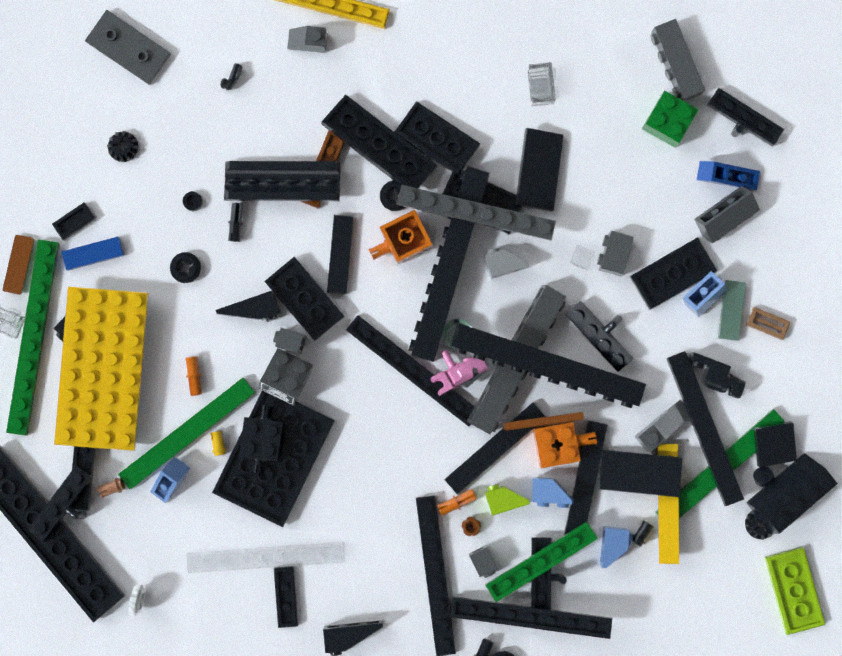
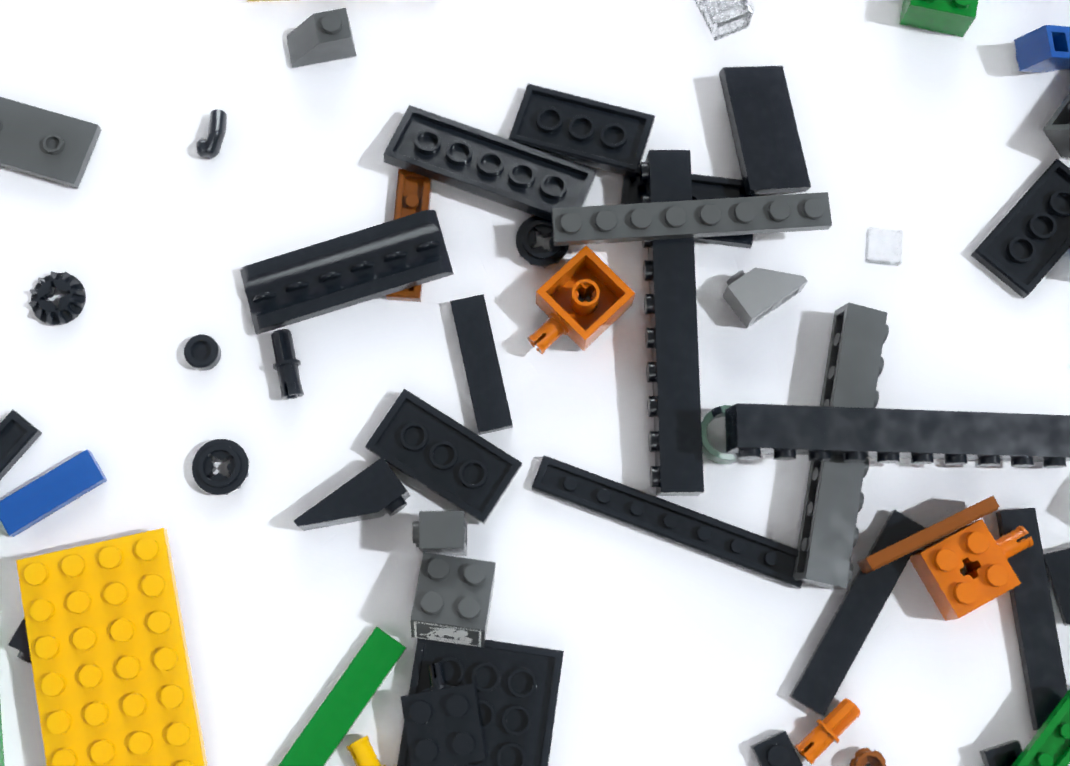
camera: 20 degrees left, 10 degrees down
(193, 376) = (287, 652): orange axle -> none
(459, 374) = (756, 499): bright pink piece -> none
(503, 499) = (908, 698): lime slope -> none
(550, 491) = (984, 657): medium blue slope -> none
(600, 335) = (964, 362): black plate -> none
(615, 253) = (937, 222): dark grey brick -> none

